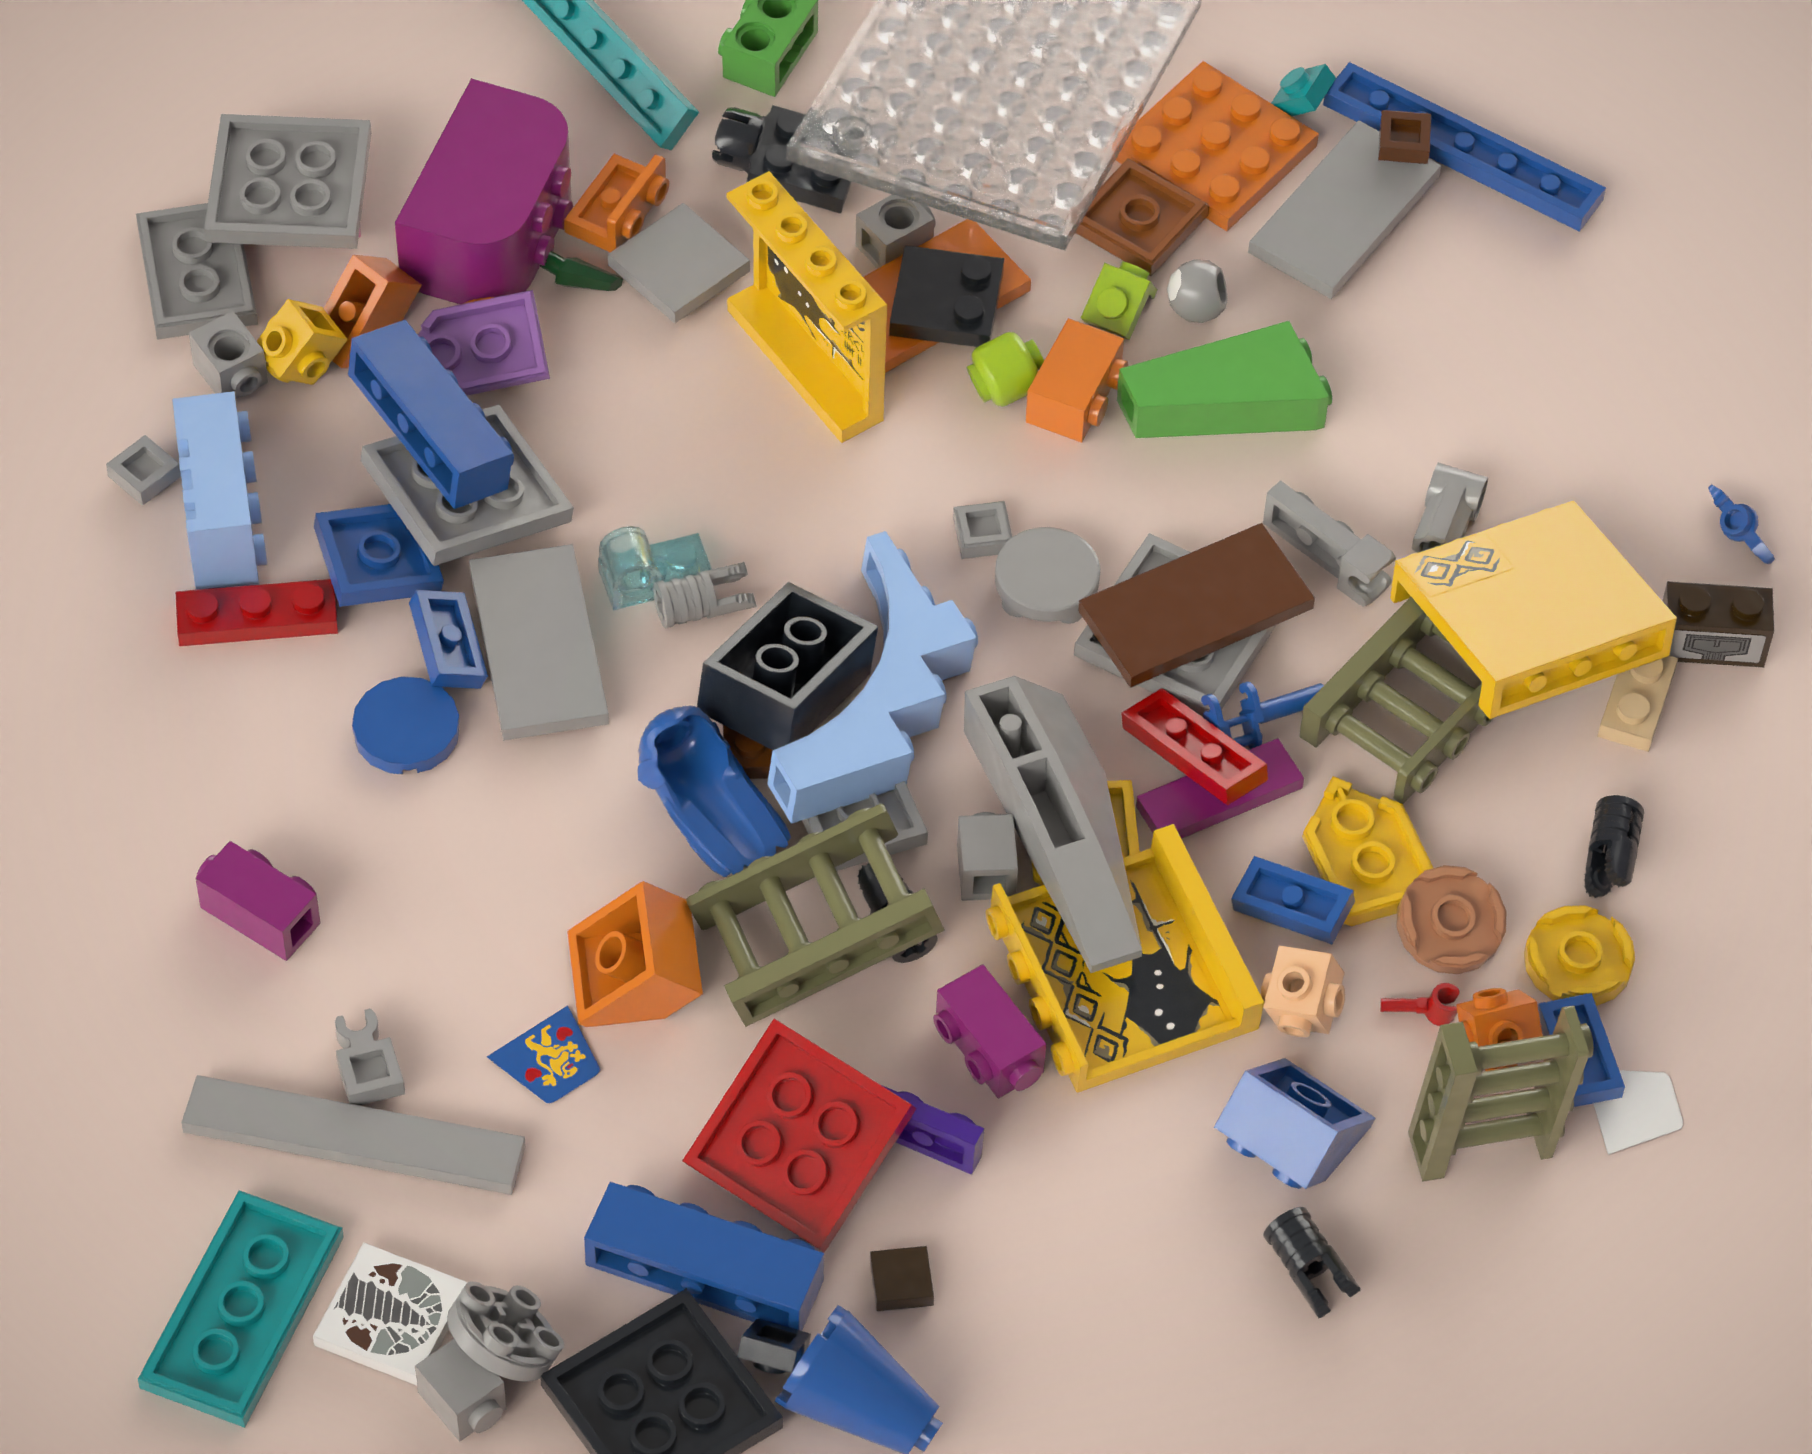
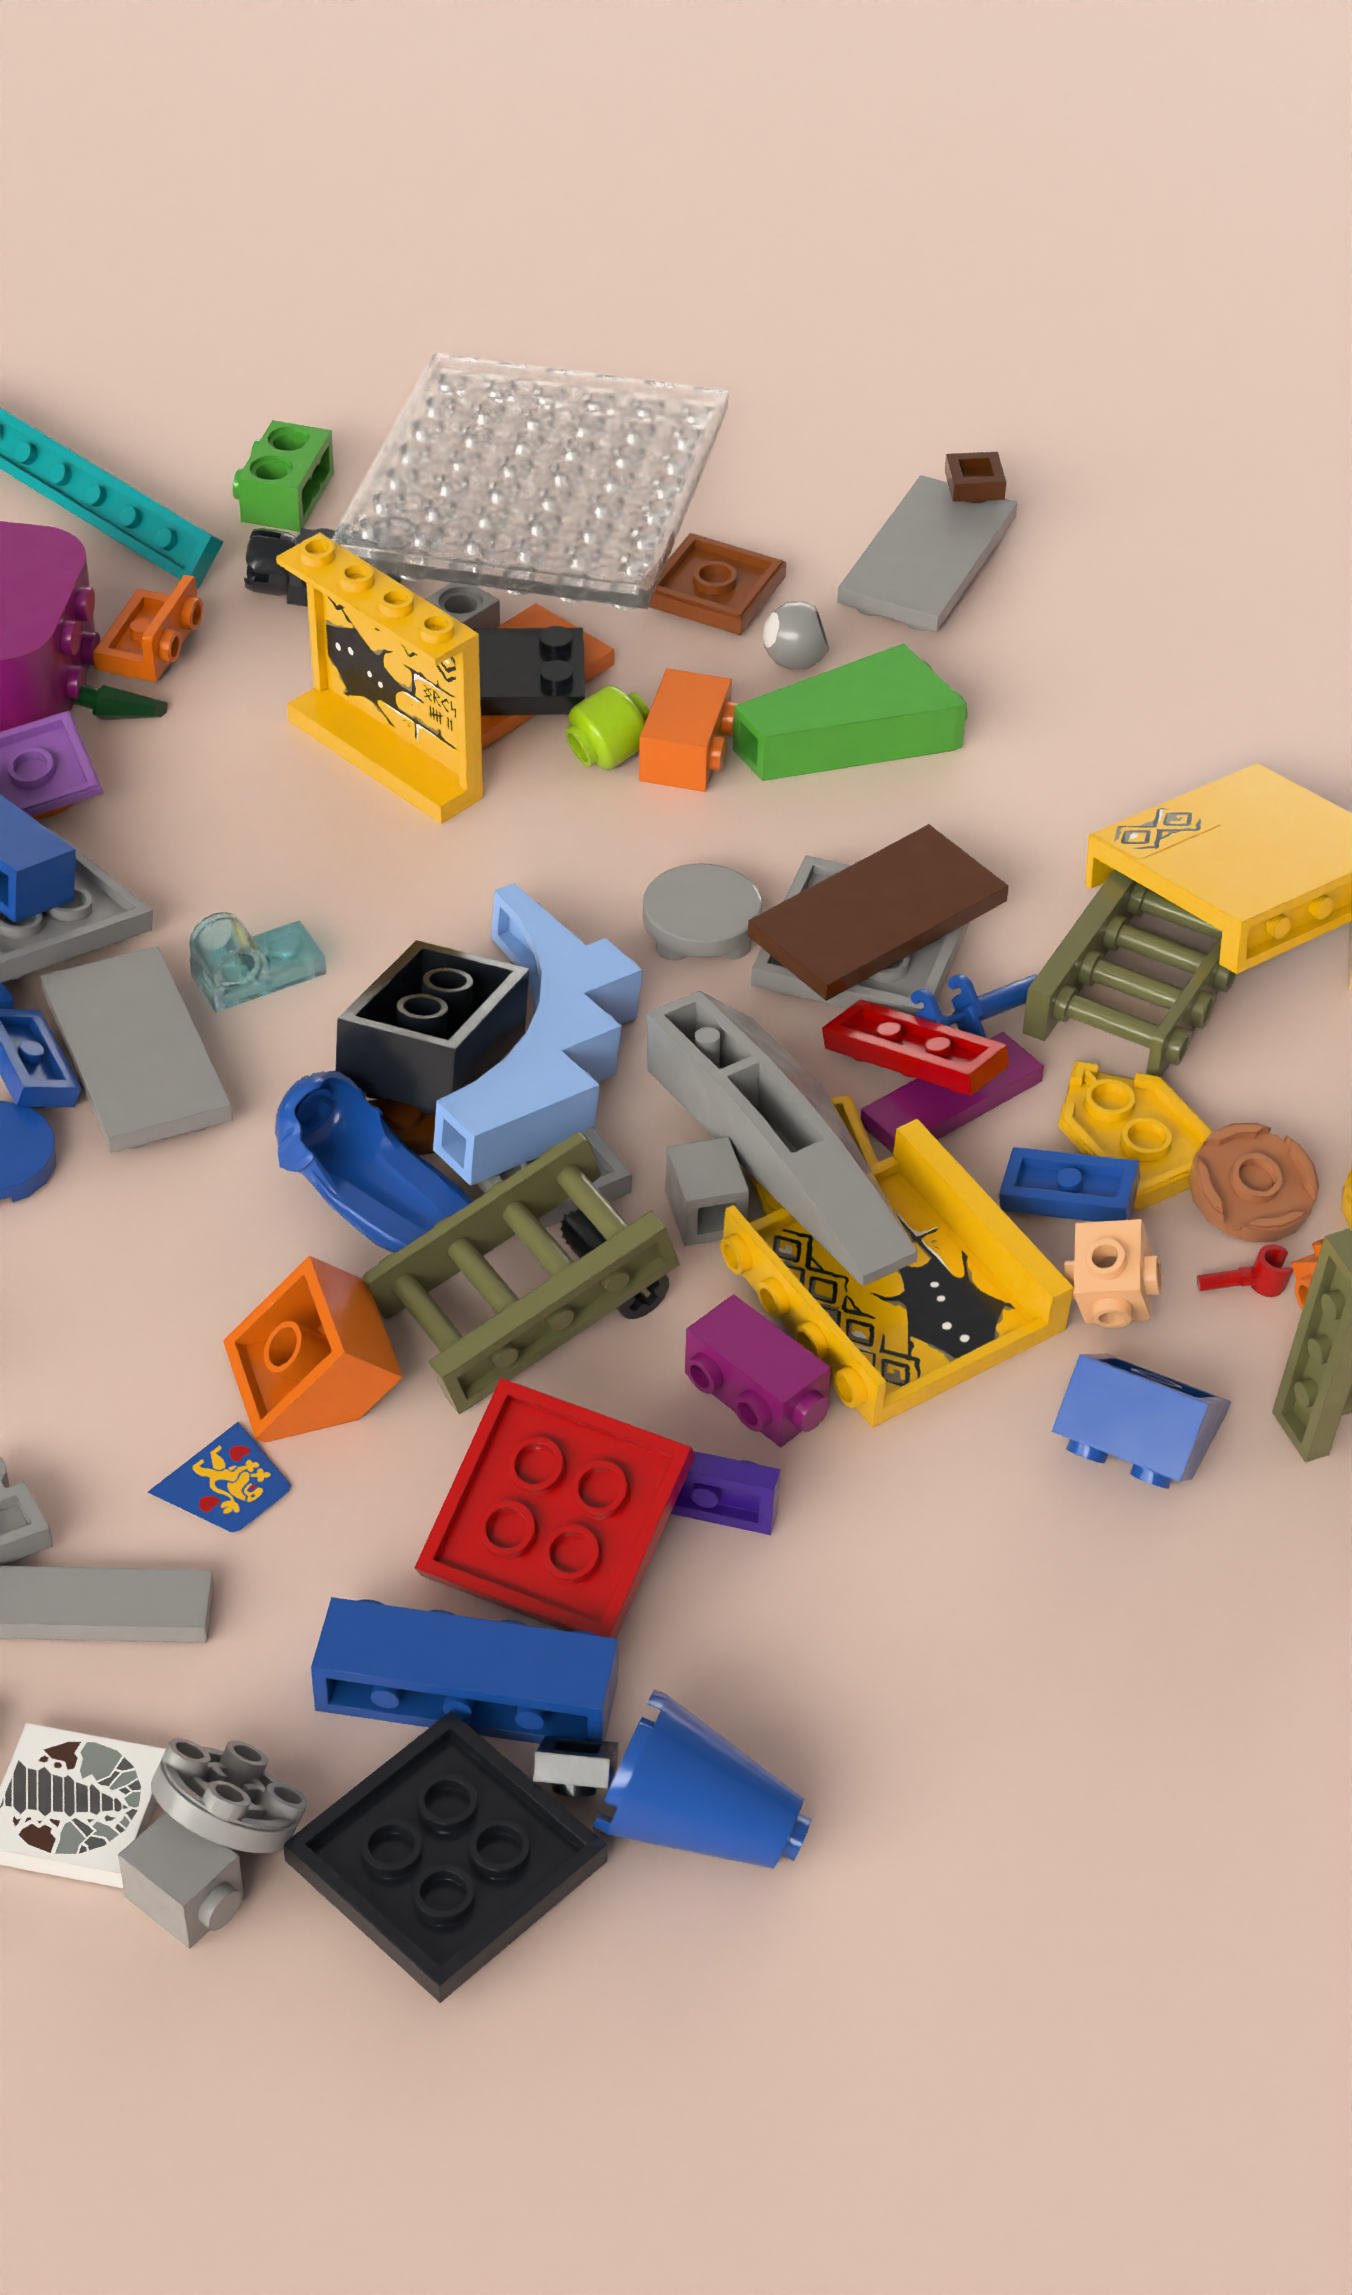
camera: 10 degrees left, 10 degrees down
(679, 263) = (227, 678): light grey tile -> none
(695, 596) = (311, 981): light grey hinge -> none
(901, 1278) = (715, 1662): dark brown tile -> none
(981, 529) = (616, 880): light grey tile -> none
(1118, 299) = (715, 647): lime bracket -> none
(1218, 143) = (782, 513): orange plate -> none
(1303, 89) = (854, 458): teal plate -> none
(1308, 1256) = (1202, 1559): black hinge -> none
(1329, 543) = (1007, 842): light grey plate -> none
(1450, 504) = (1122, 787): light grey piece -> none
(1472, 149) = (1049, 490): blue plate -> none

